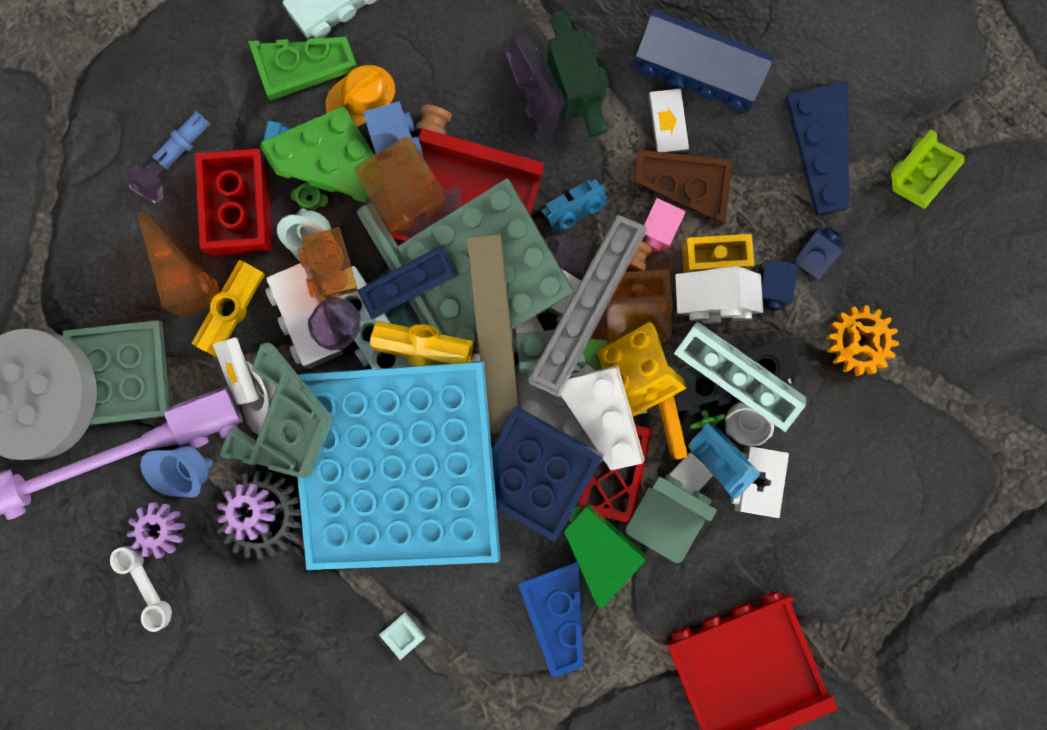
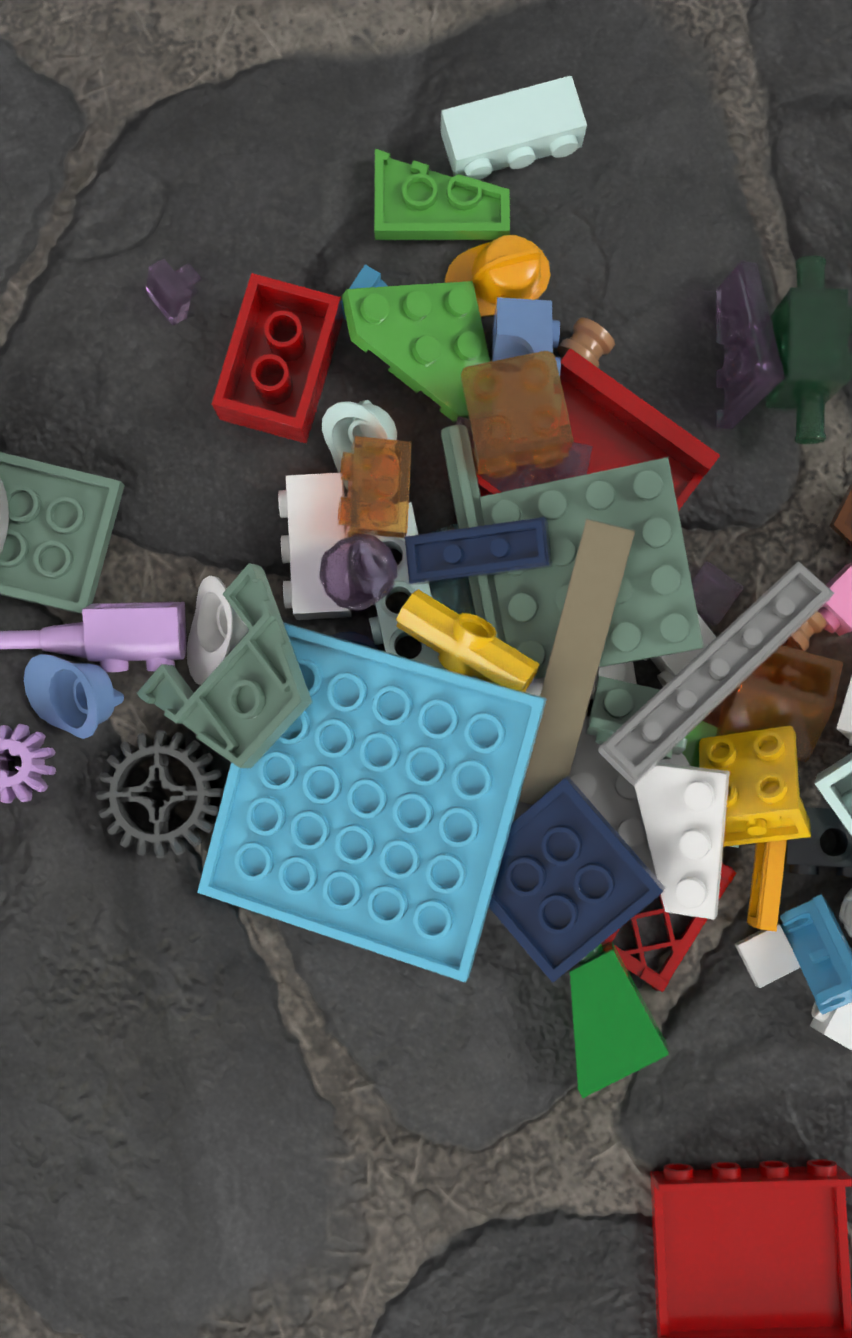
camera: 20 degrees right, 0 degrees up
(179, 278) = (169, 437): clear orange slope -> none
(181, 140) = (237, 250): medium blue pin -> none
(233, 512) = (127, 789): lavender gear -> none
(236, 371) = (200, 587): white tile -> none
(239, 289) = (242, 477): yellow piece -> none
(300, 196) = (371, 379): bright green plate -> none
(402, 635) = (294, 1030): light aqua tile -> none
(556, 616) = (514, 1079): blue wing -> none
(587, 200) = (759, 526): dark azure hinge -> none
(669, 518) = (719, 1004): sand green bracket -> none
(706, 419) = (811, 892): bright green plant -> none

